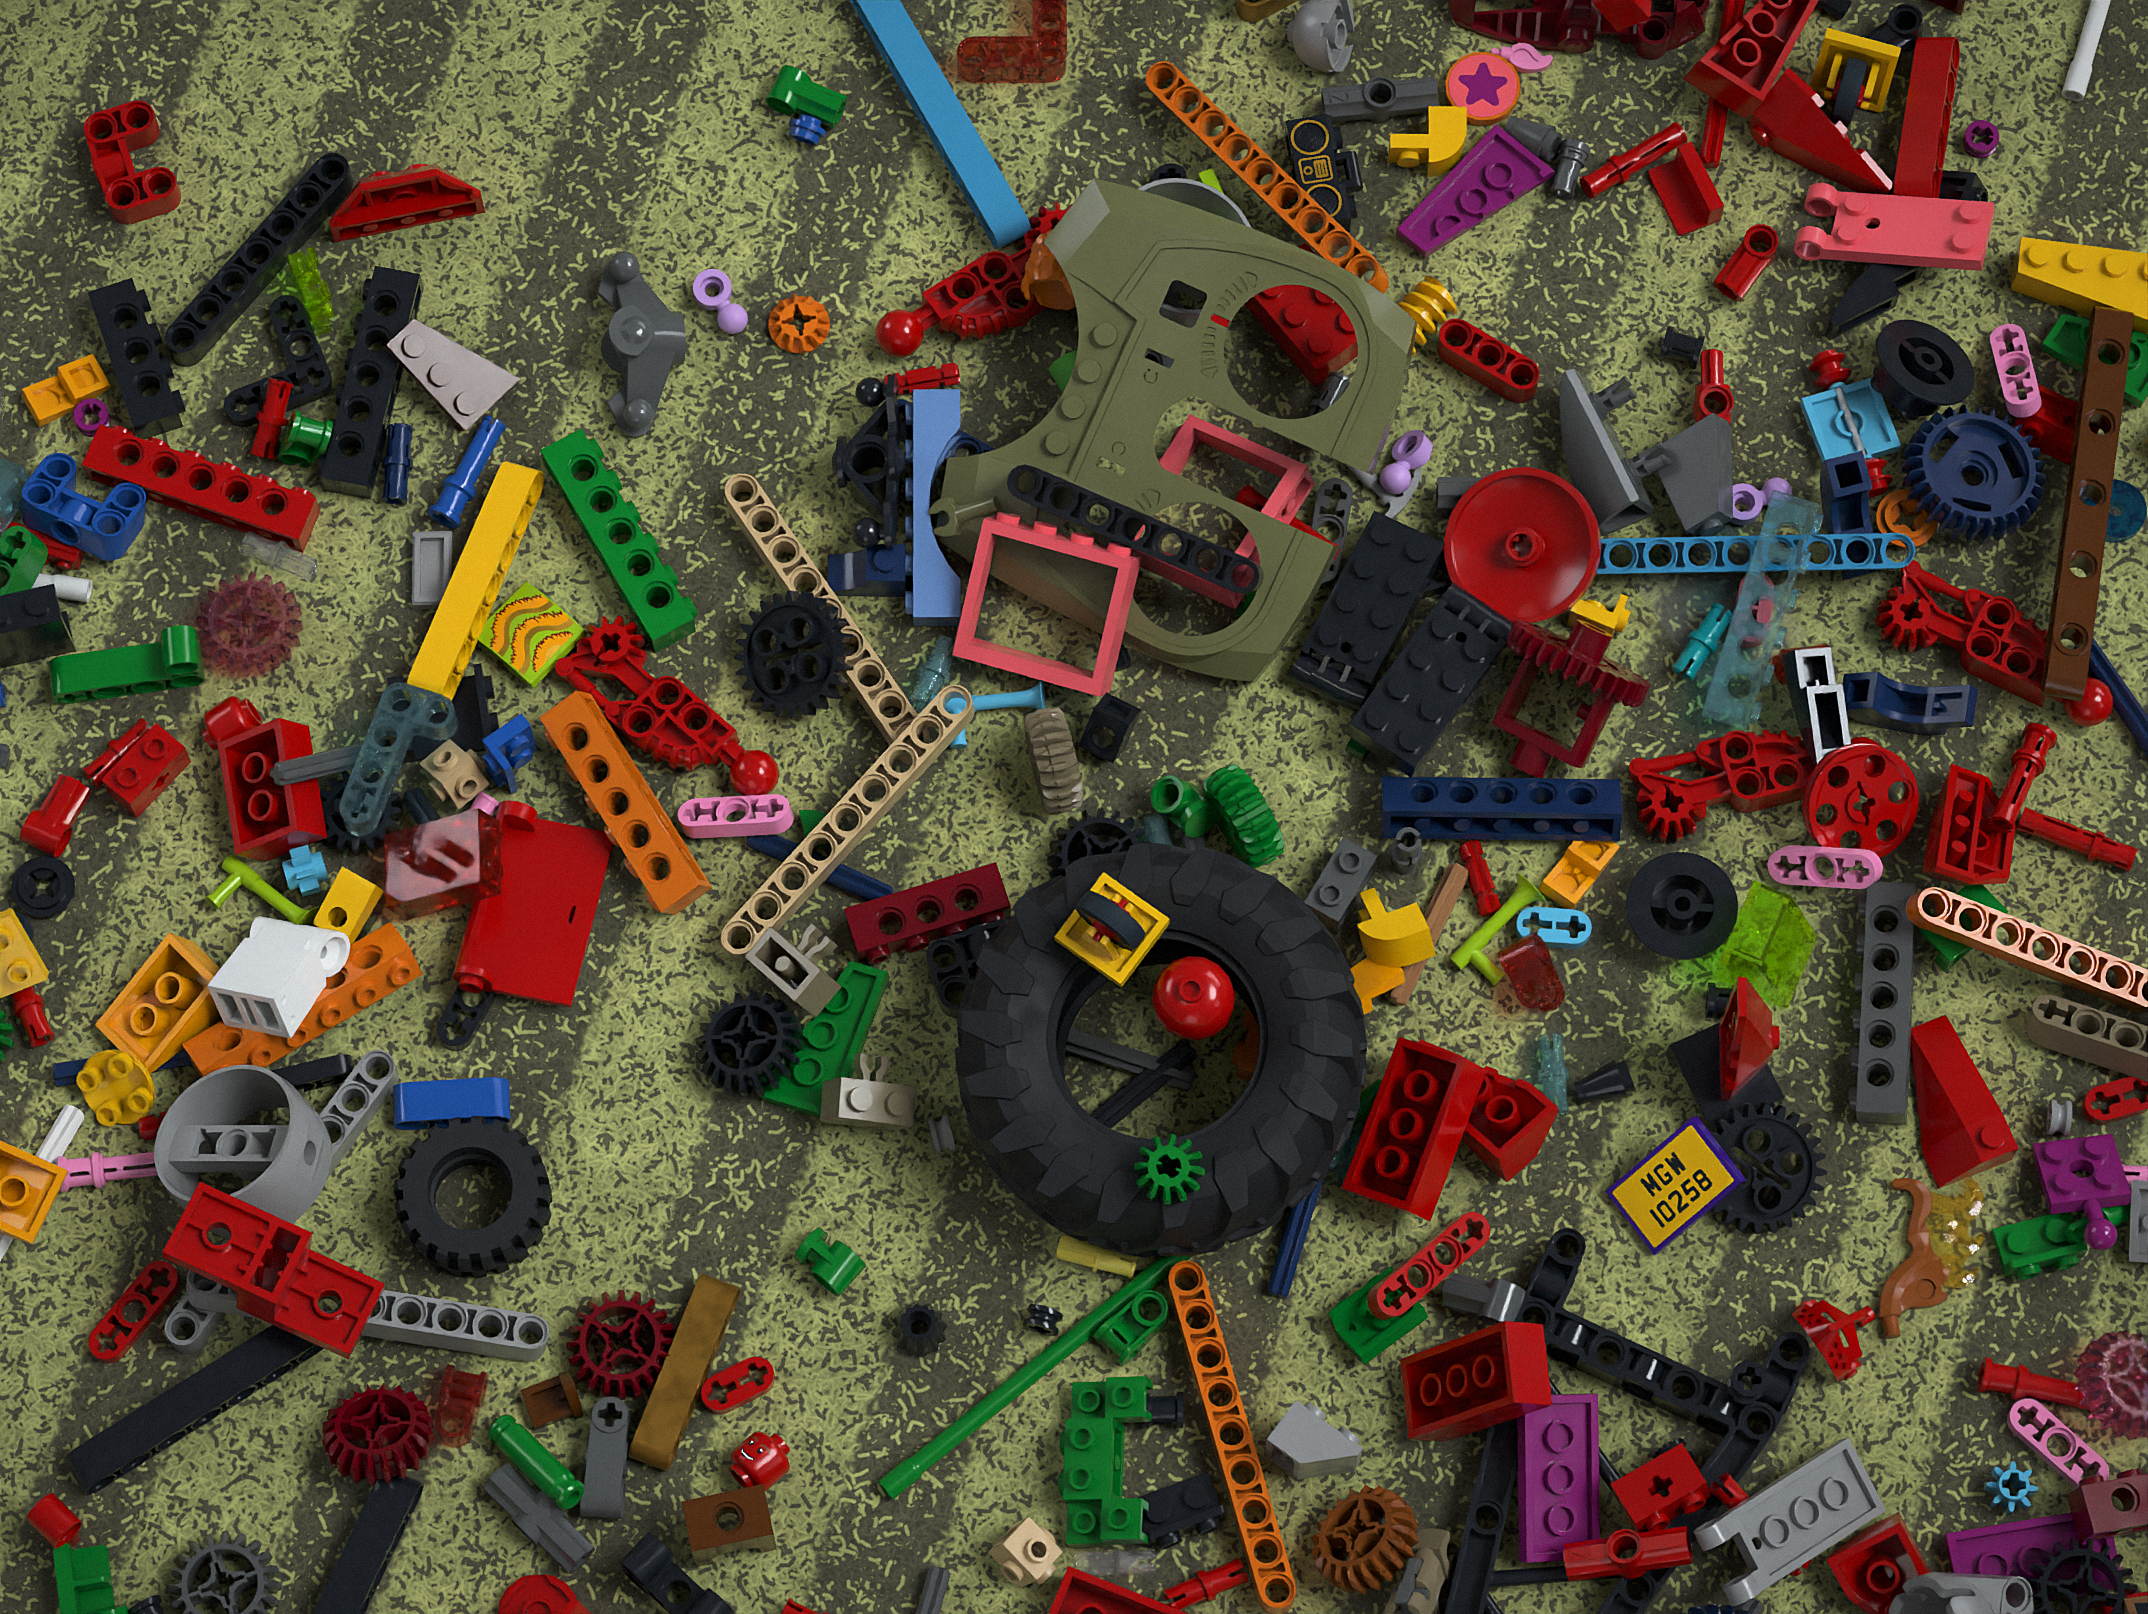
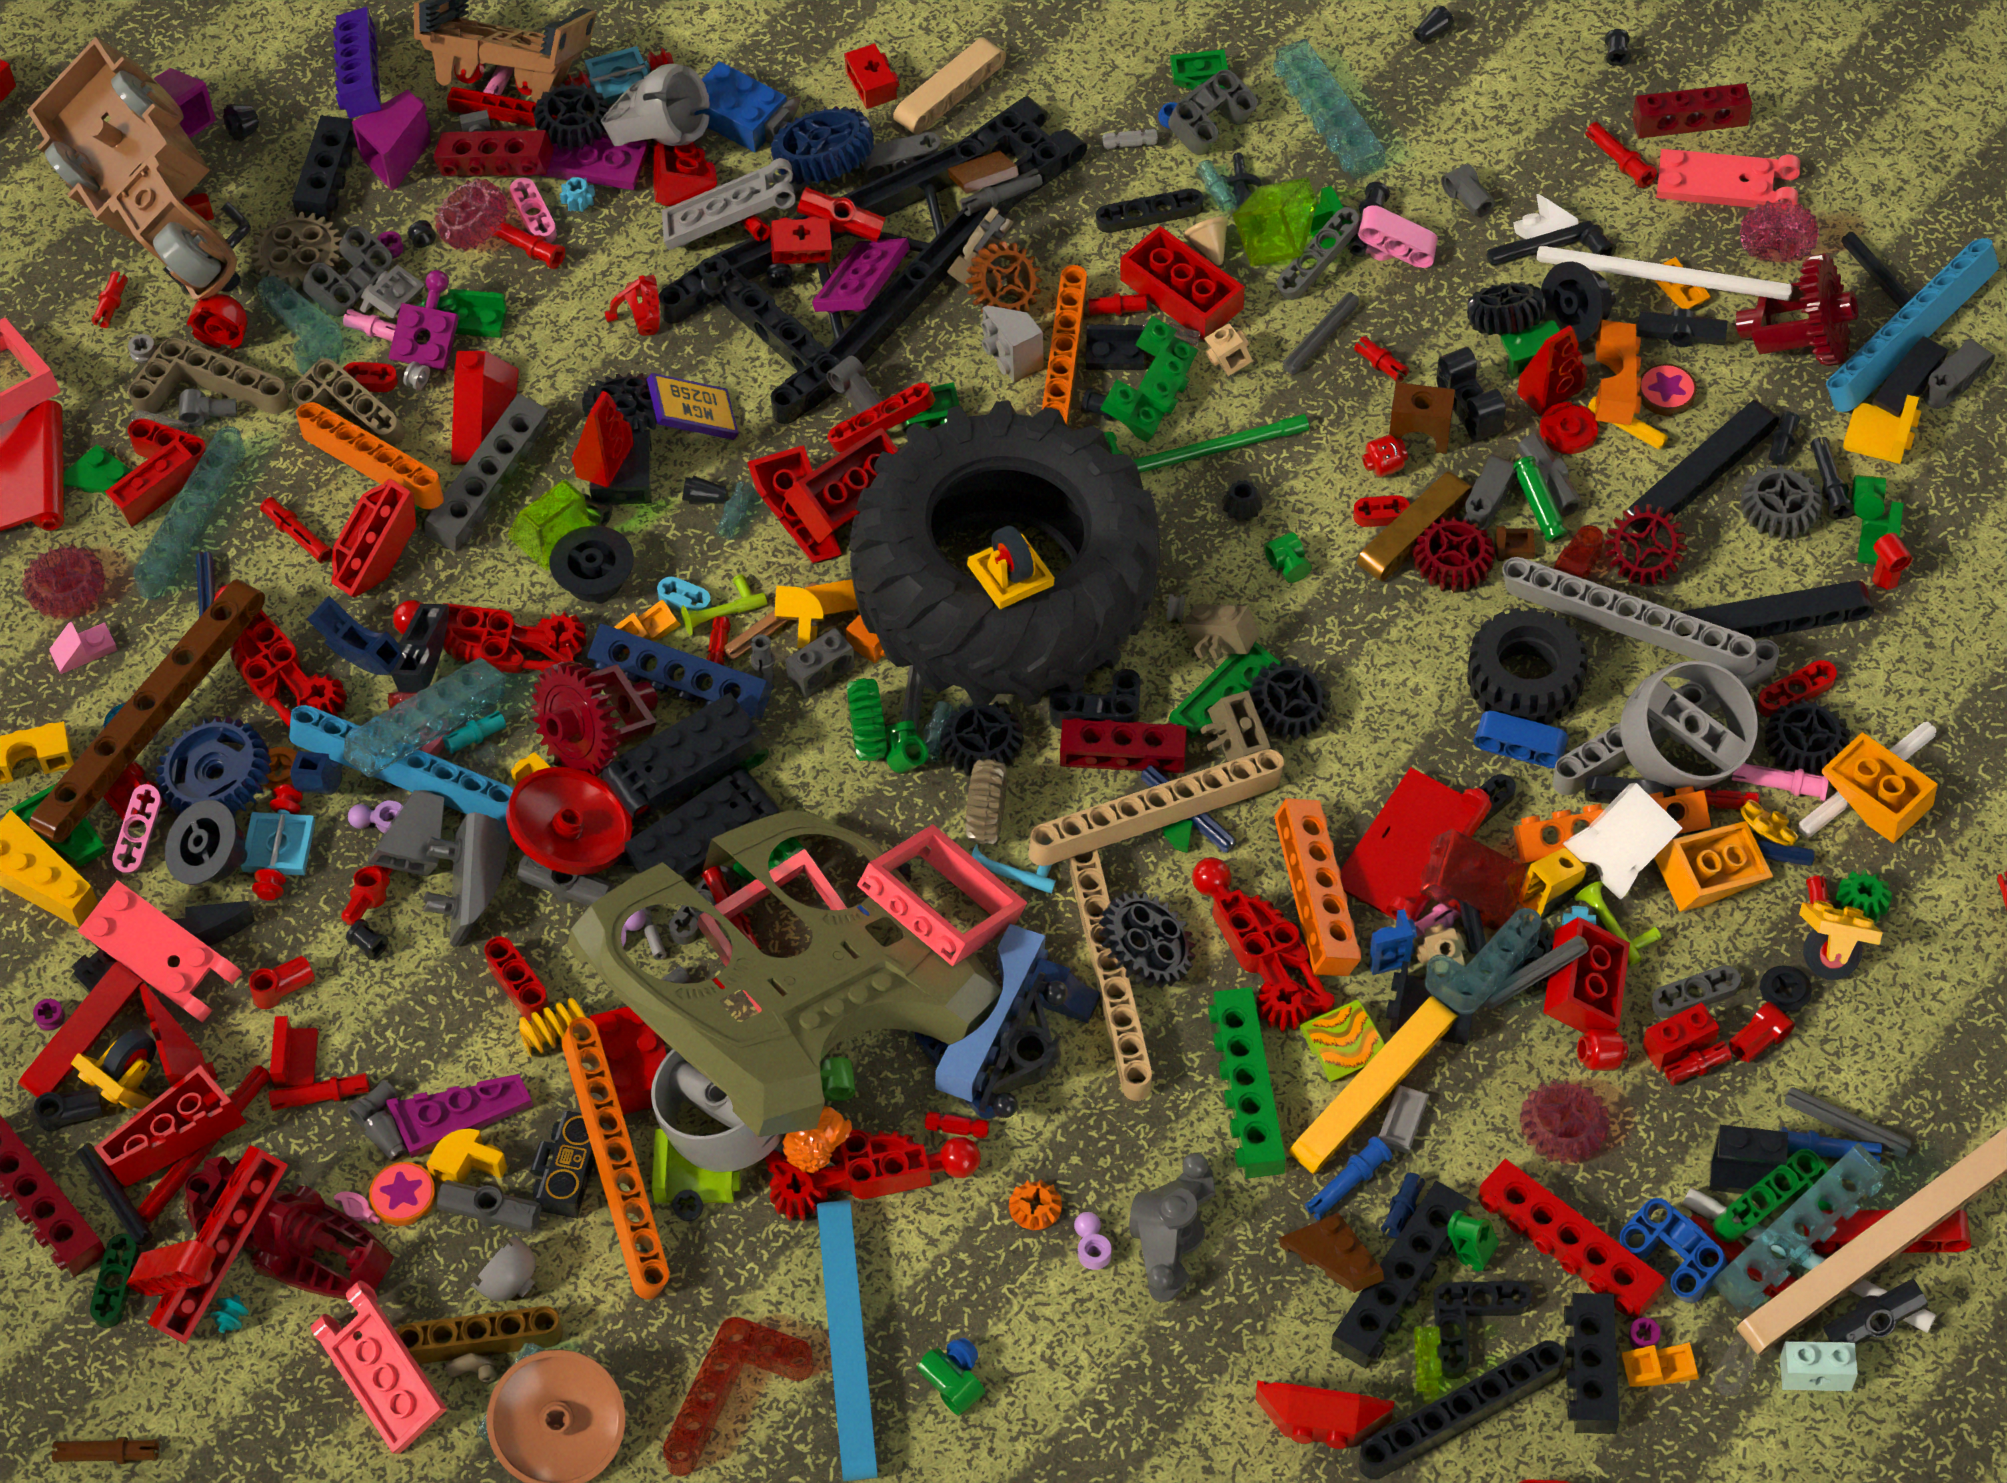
camera: 155 degrees left, 15 degrees down
(85, 1235) = (1788, 733): none -> black gear
(129, 670) = (1664, 1116): green beam -> none
(147, 830) = (1703, 980): none -> dark grey beam
(271, 418) = (1495, 1269): red pin -> none
(273, 1270) = (1692, 617): red bracket -> none
(279, 556) = (1507, 1150): clear axle -> none
(762, 805) = (1249, 847): bright pink beam -> none
(933, 673) = (1046, 902): clear light blue pin -> none
(960, 514) = (980, 983): olive bar -> none
(1043, 1320) = (1155, 478): black bush -> none
(1116, 524) = (854, 898): black beam -> none
(1119, 718) = (933, 809): black brick -> none
(1163, 1182) = (1041, 426): green gear -> none
(1193, 998) = (974, 512): red cylinder -> none
(1476, 1381) = (889, 320): red brick -> none
(1529, 967) = (717, 565): clear red piece -> none
(1838, 856) = (478, 556): bright pink beam -> none
(1846, 794) = (430, 585): red wedge -> none
(1938, 1247) = (539, 338): piece -> none
(2027, 764) = (300, 578): red pin -> none

